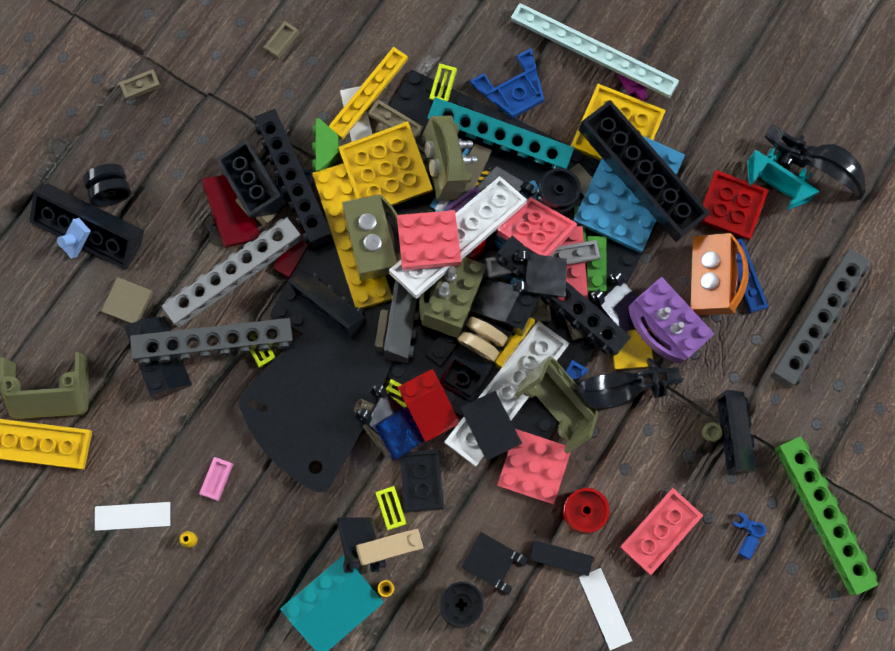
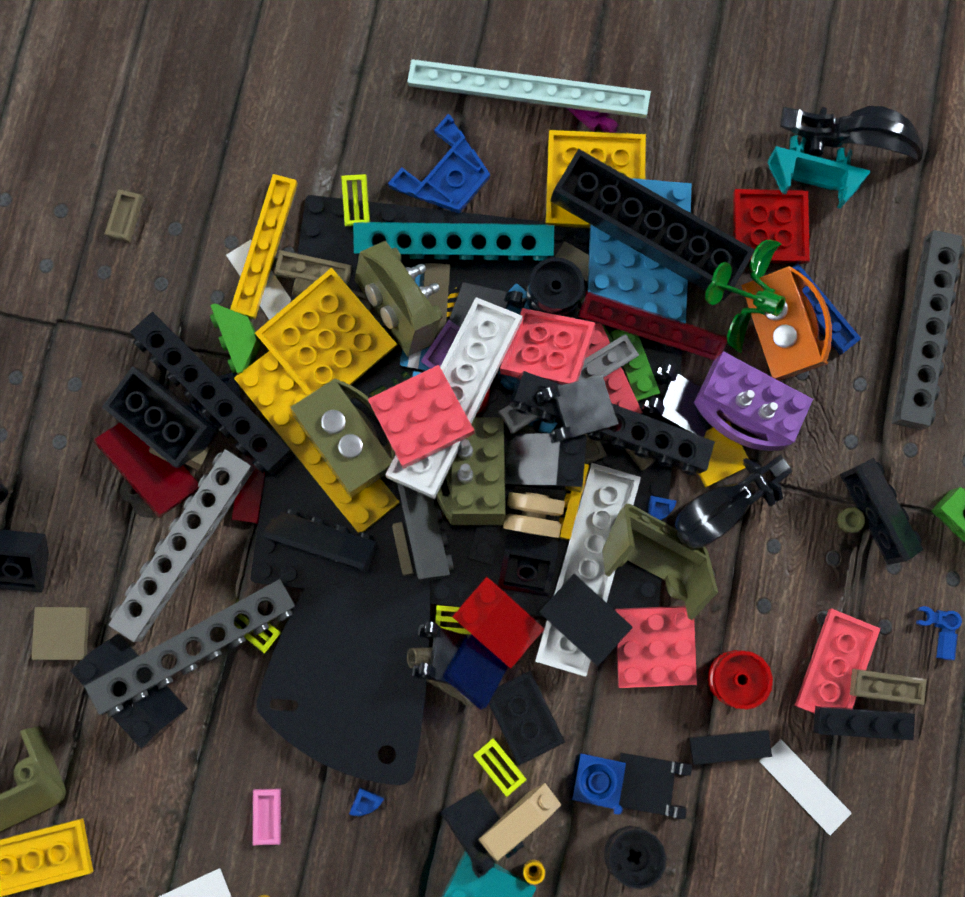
camera: 25 degrees left, 5 degrees up
(287, 496) = (365, 803): none -> blue tile
(457, 546) = (599, 782): none -> blue hat
(618, 242) = (652, 326): none -> dark red tile
(665, 577) = (864, 723): none -> black plate
(693, 559) = (888, 686): none -> dark tan tile
(704, 251) = (765, 301): none -> green plant

